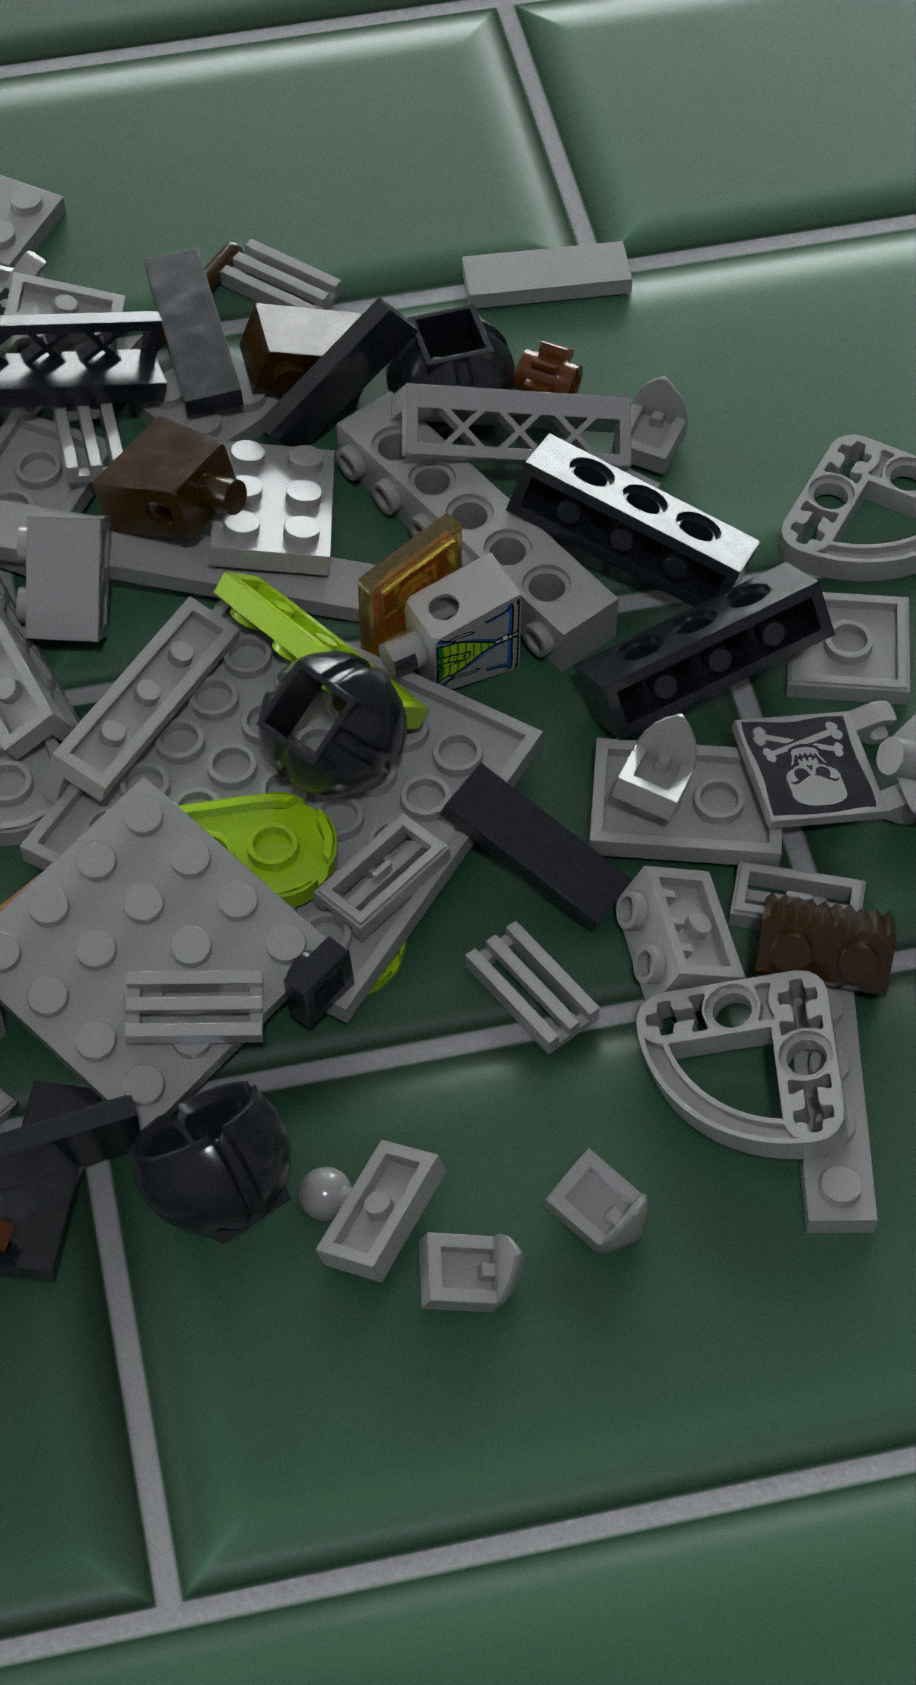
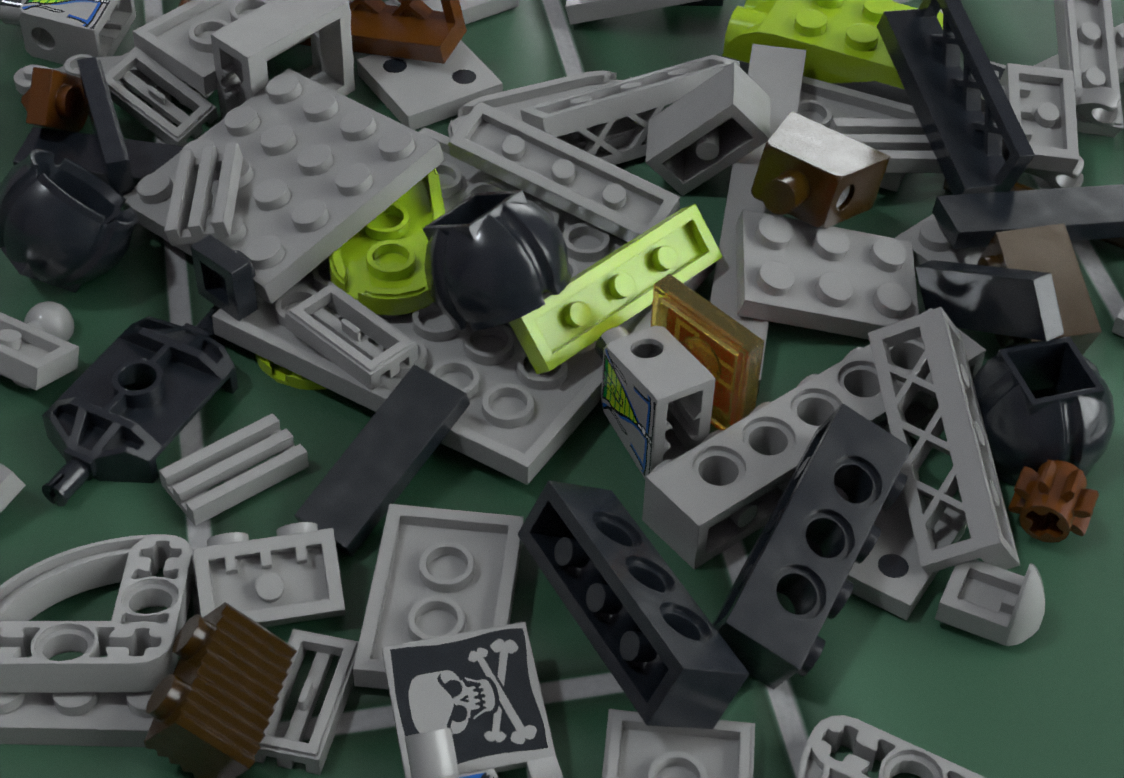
camera: 90 degrees right, 10 degrees down
(482, 1110) = (121, 432): none -> black plate
(659, 768) = (447, 541): light grey plate -> none

